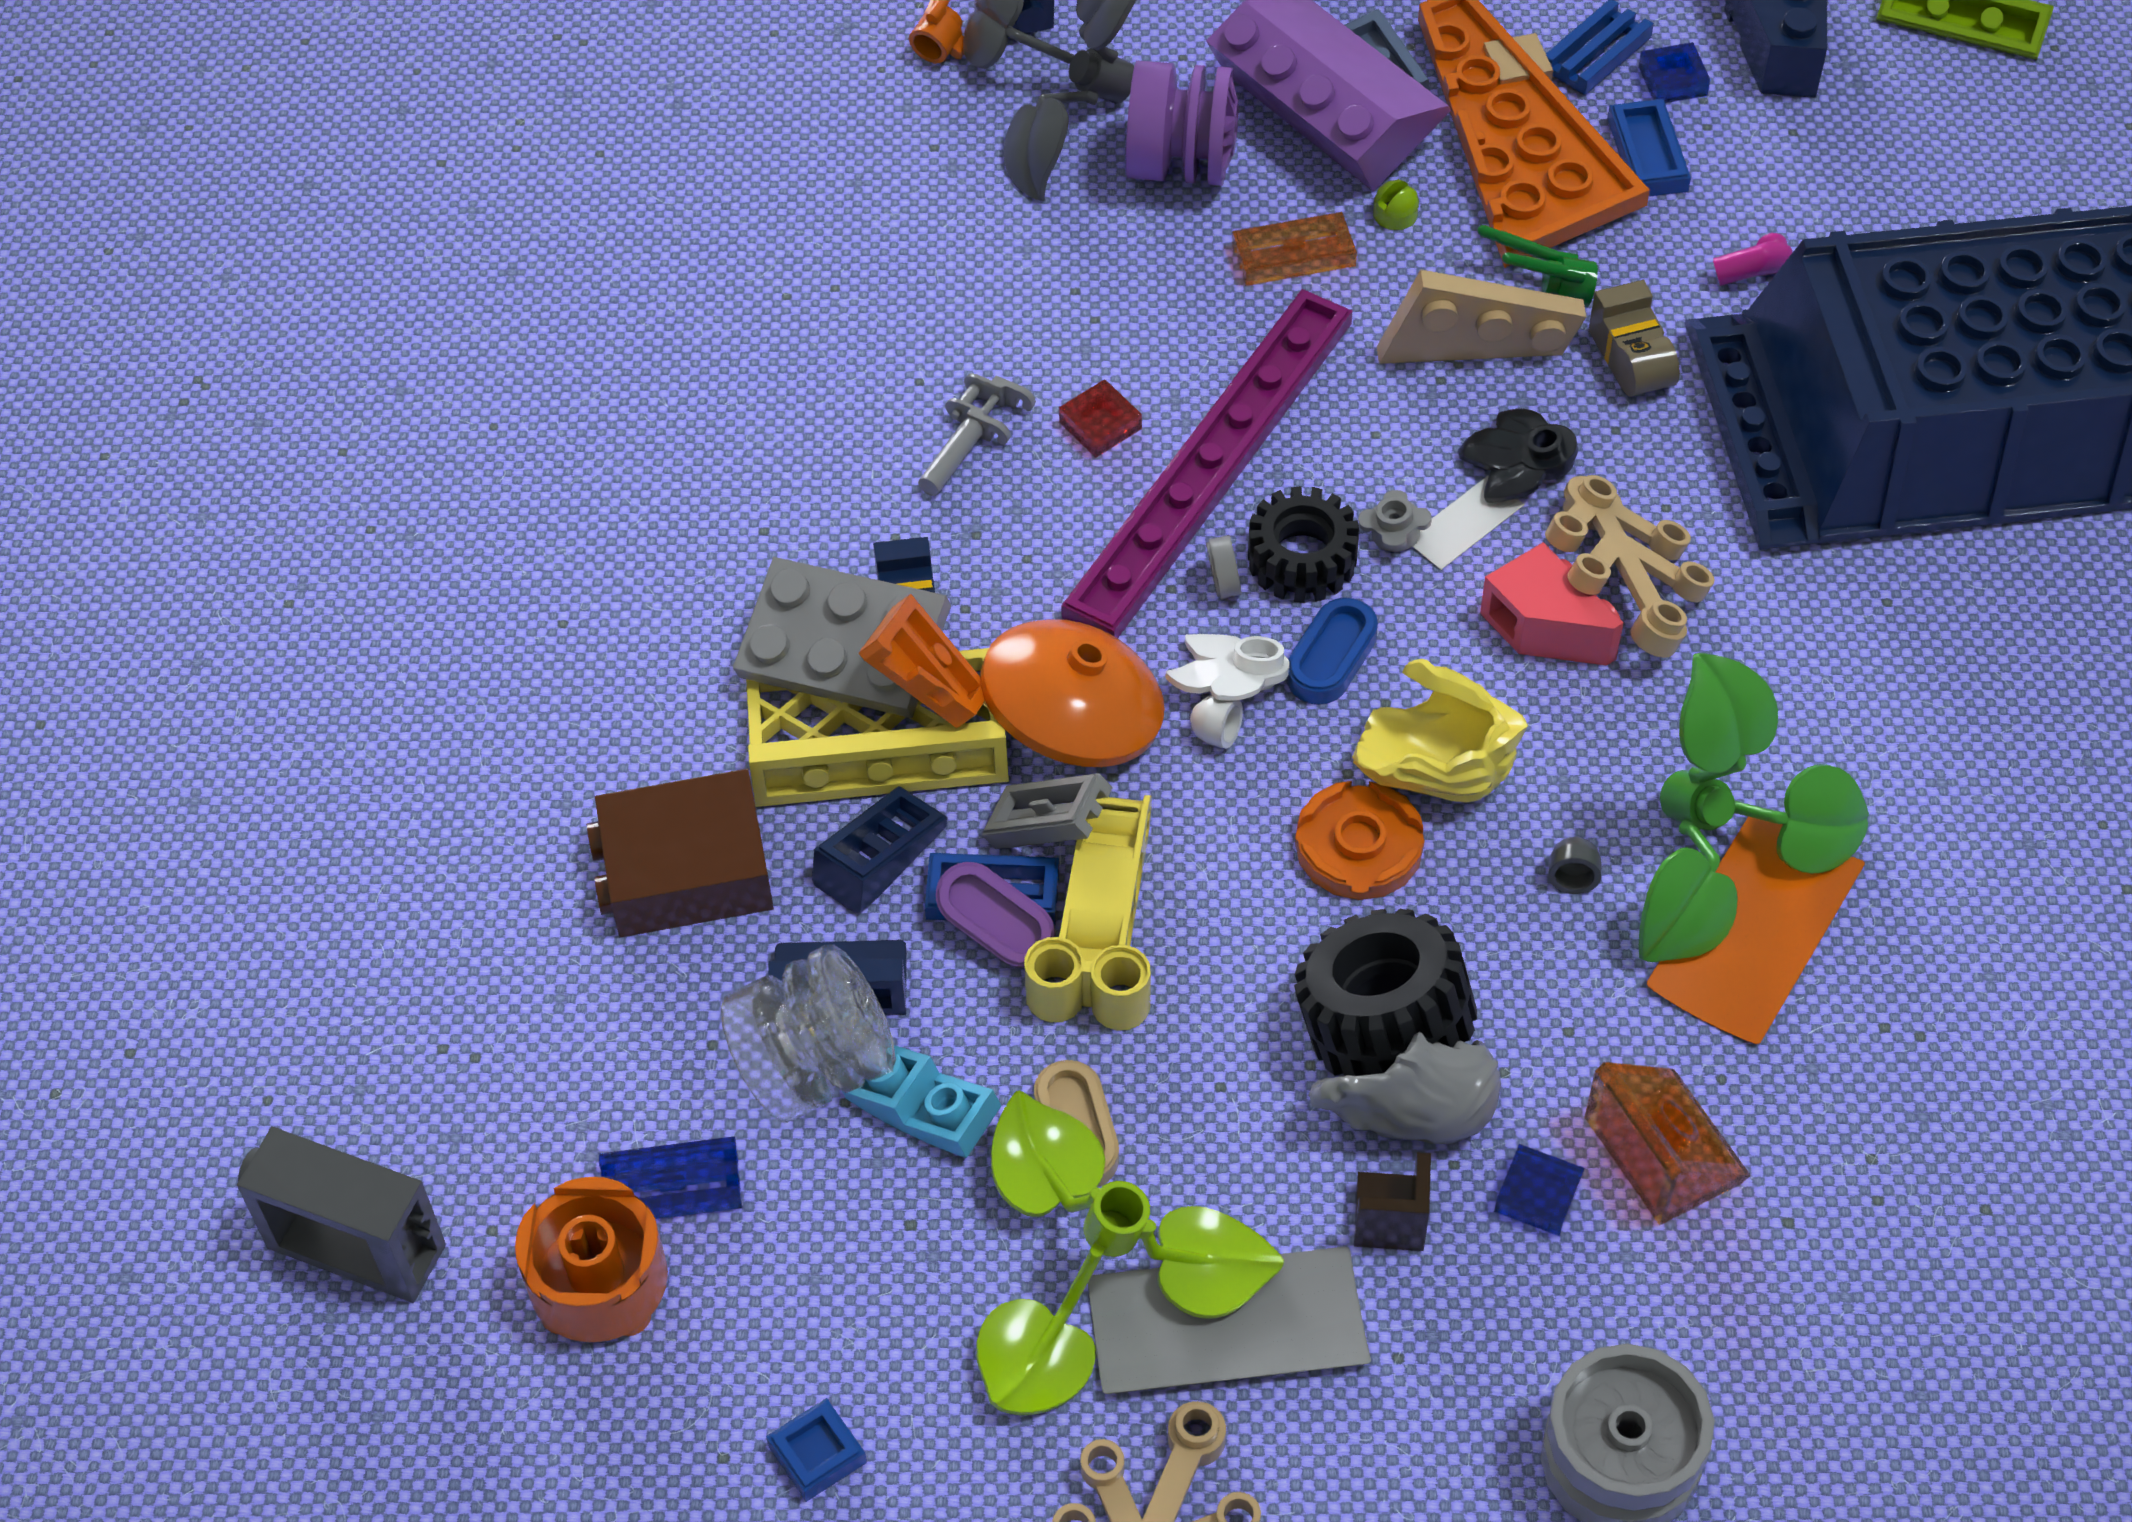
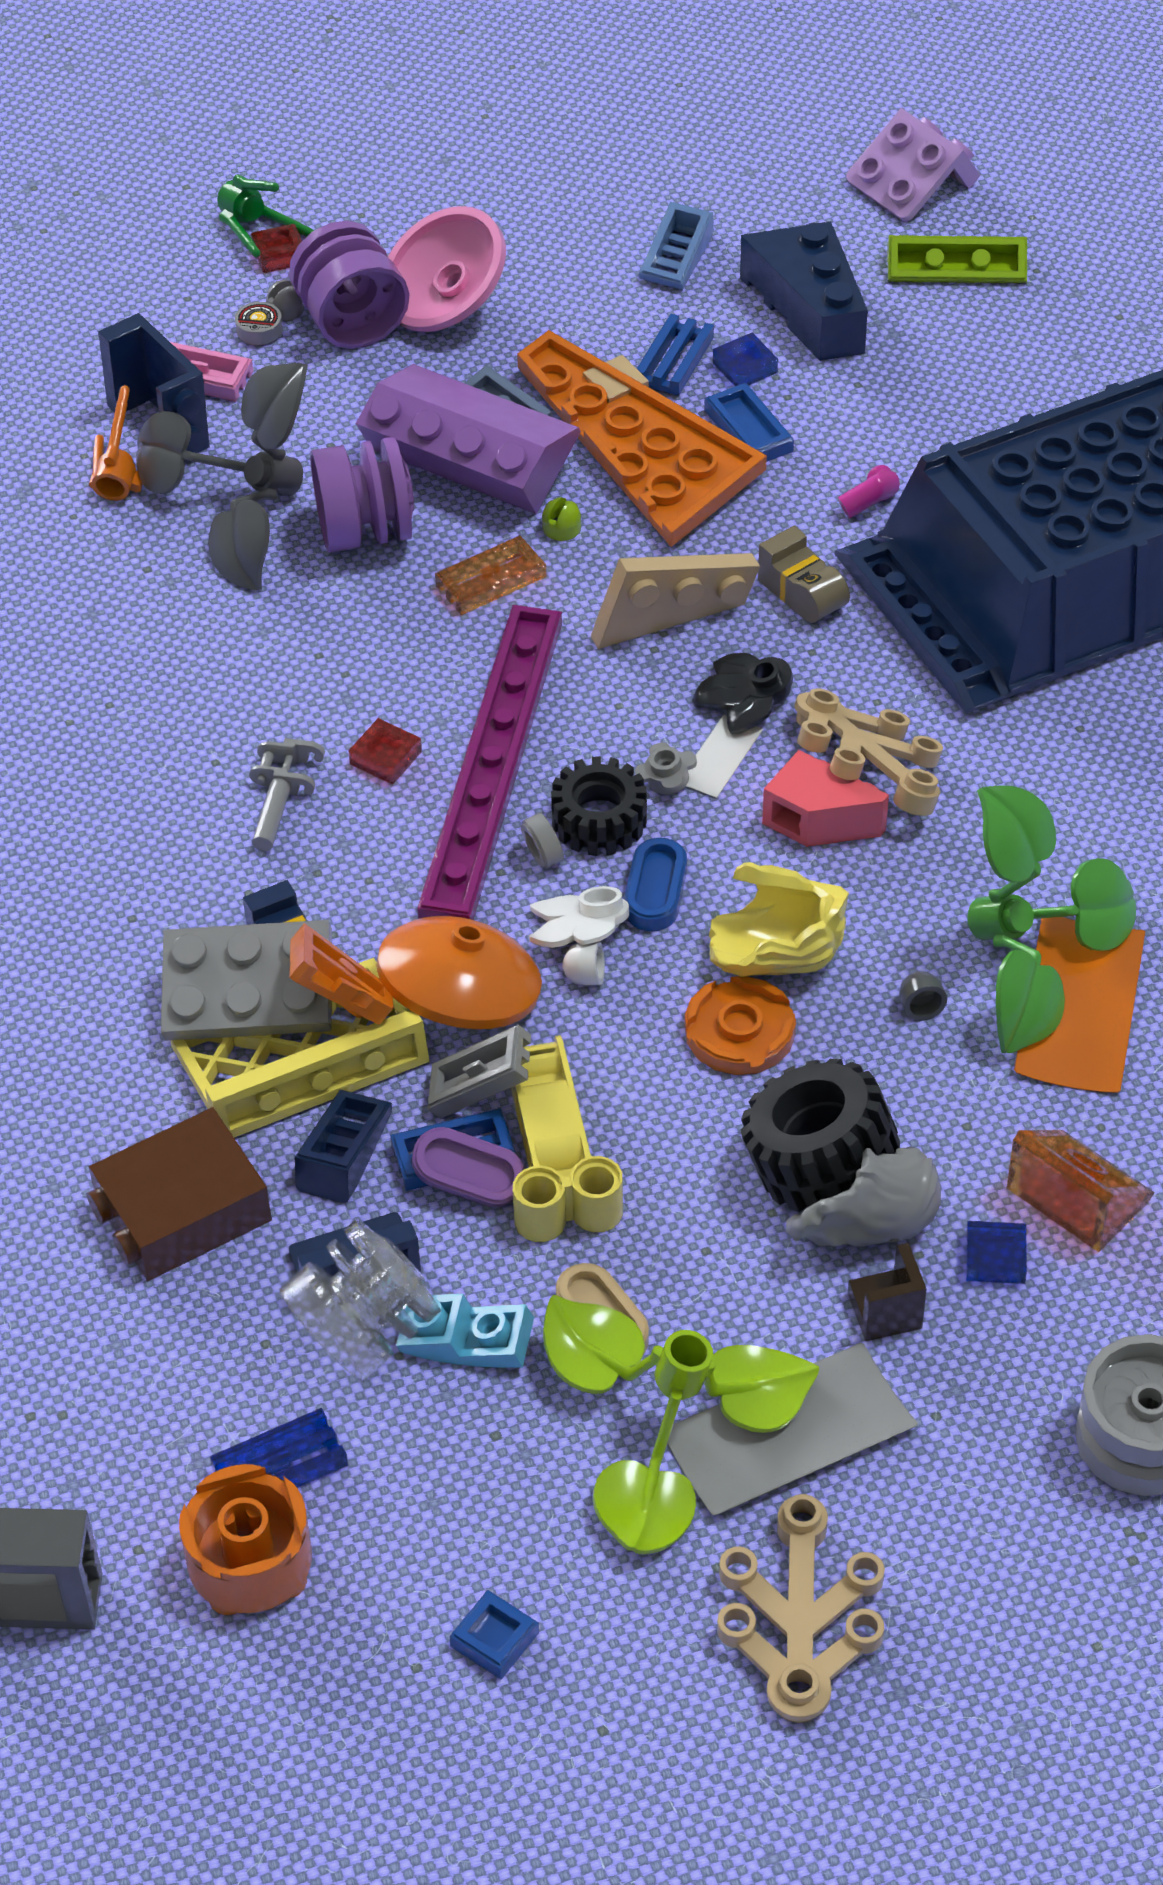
camera: 20 degrees left, 5 degrees down
(1561, 271) = (721, 536): green plant -> none

